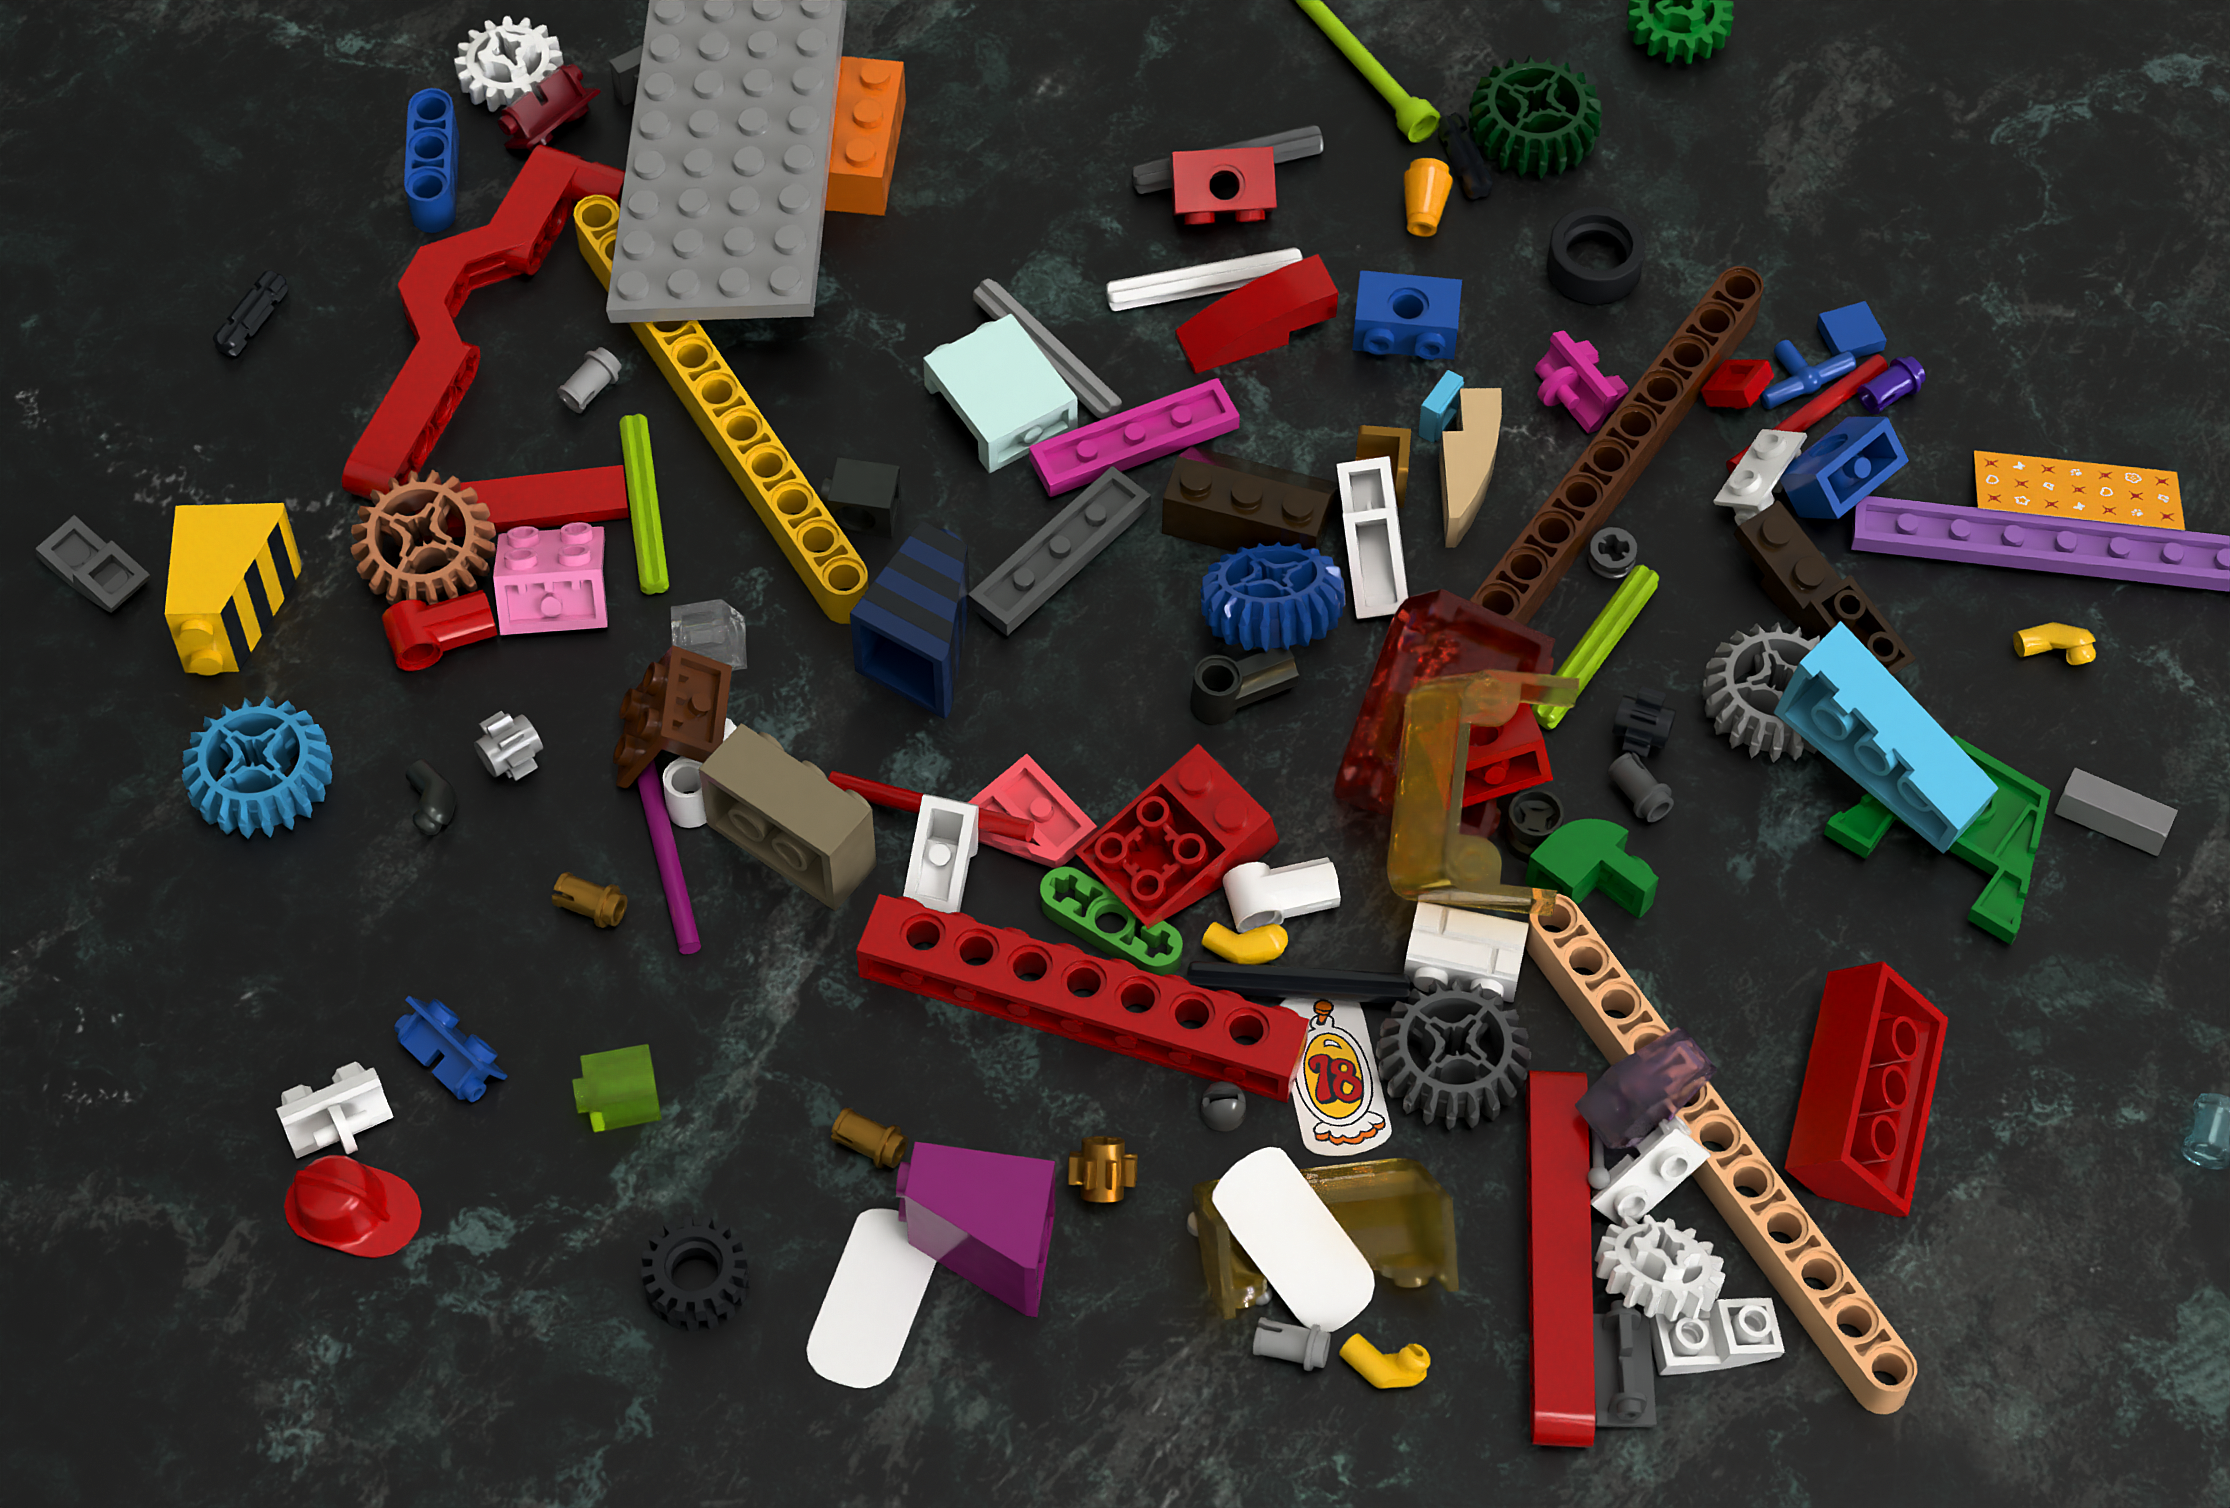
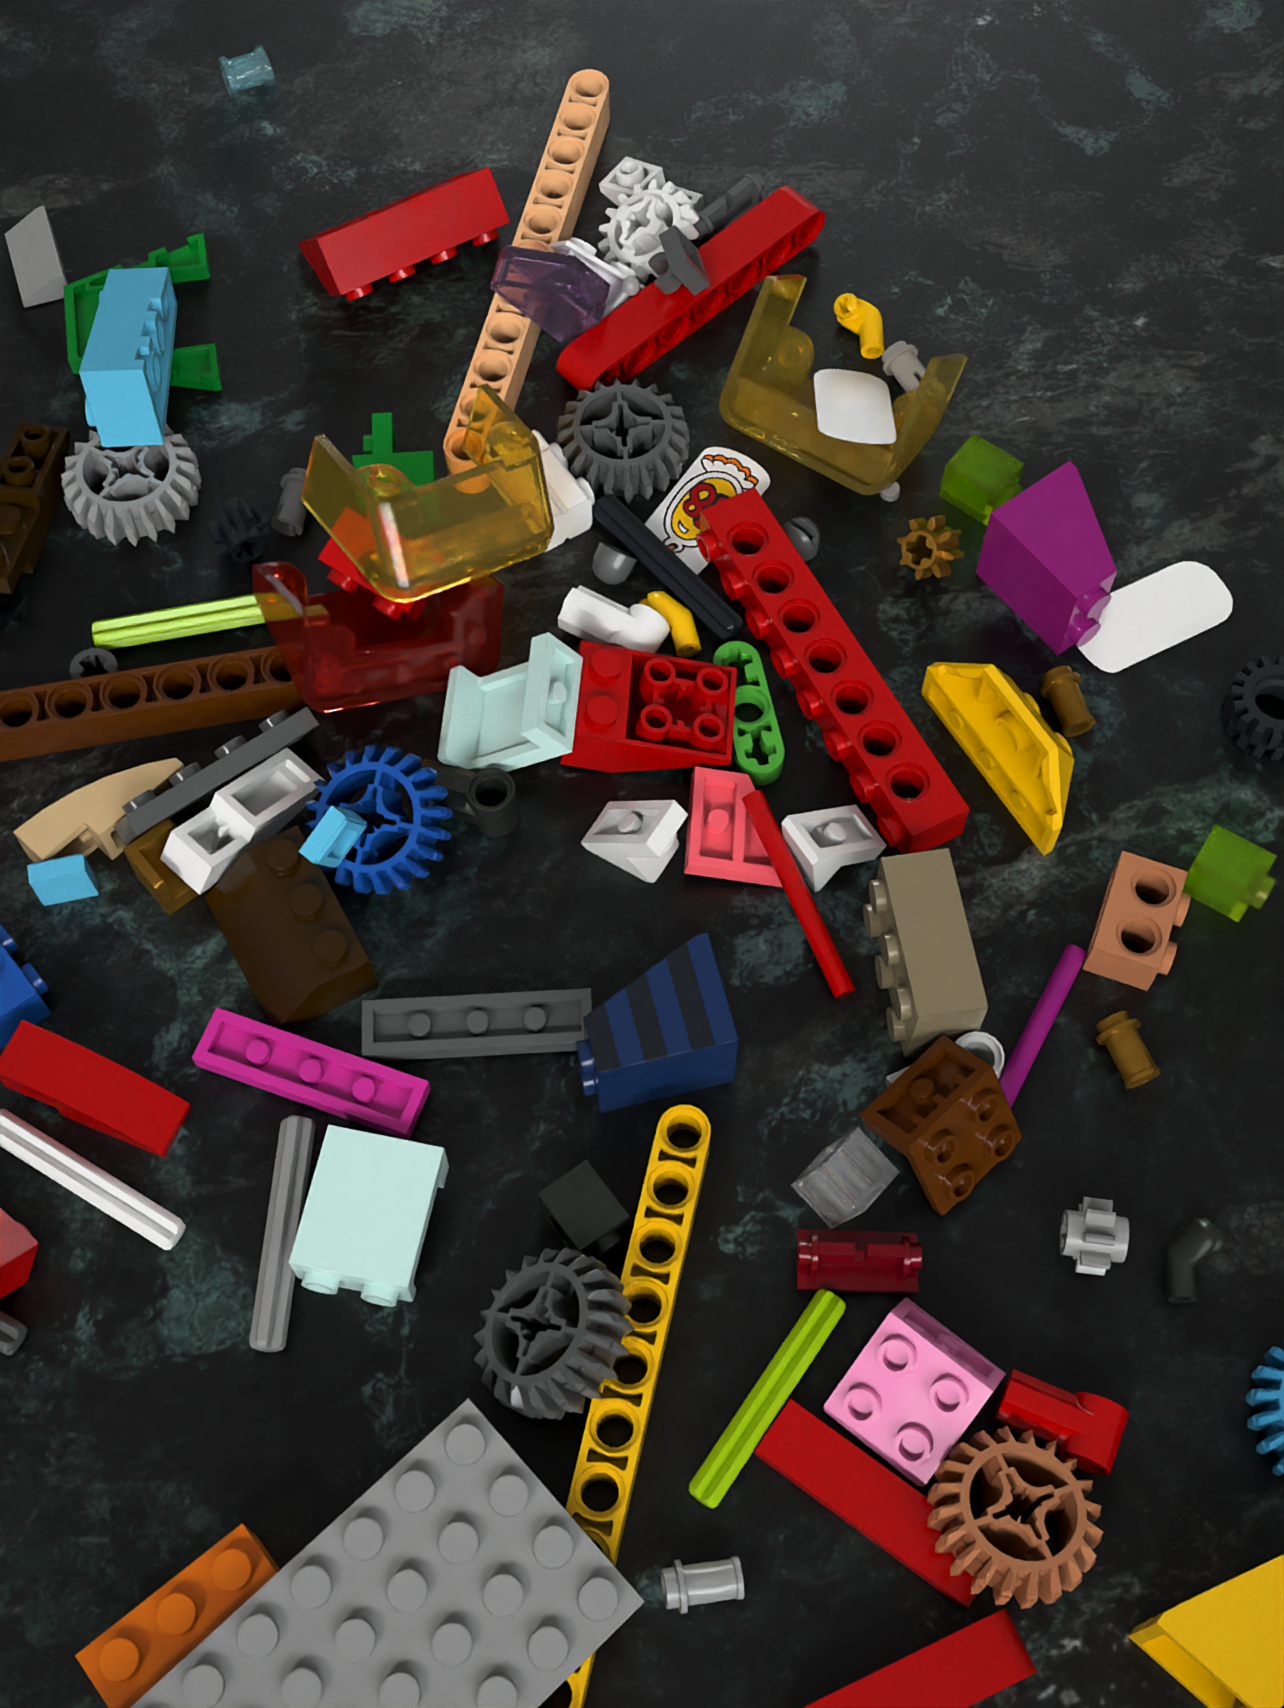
camera: 135 degrees left, 5 degrees up
(648, 626) = (858, 1261): none -> dark red hinge
(666, 990) = (1129, 918): none -> nougat brick
(805, 402) = (553, 1334): none -> dark grey gear
(882, 1049) = (1005, 742): none -> yellow wedge
(1089, 751) = (637, 835): none -> white slope
(1121, 1277) = (981, 478): none -> clear neon green brick
(1272, 533) = (333, 837): none -> medium azure tile
(1272, 742) = (513, 713): none -> light aqua panel
(1350, 950) = (612, 564): none -> dark grey hinge
(1420, 514) = (195, 784): none -> dark grey plate
(1571, 1220) = (680, 262): none -> dark grey tile

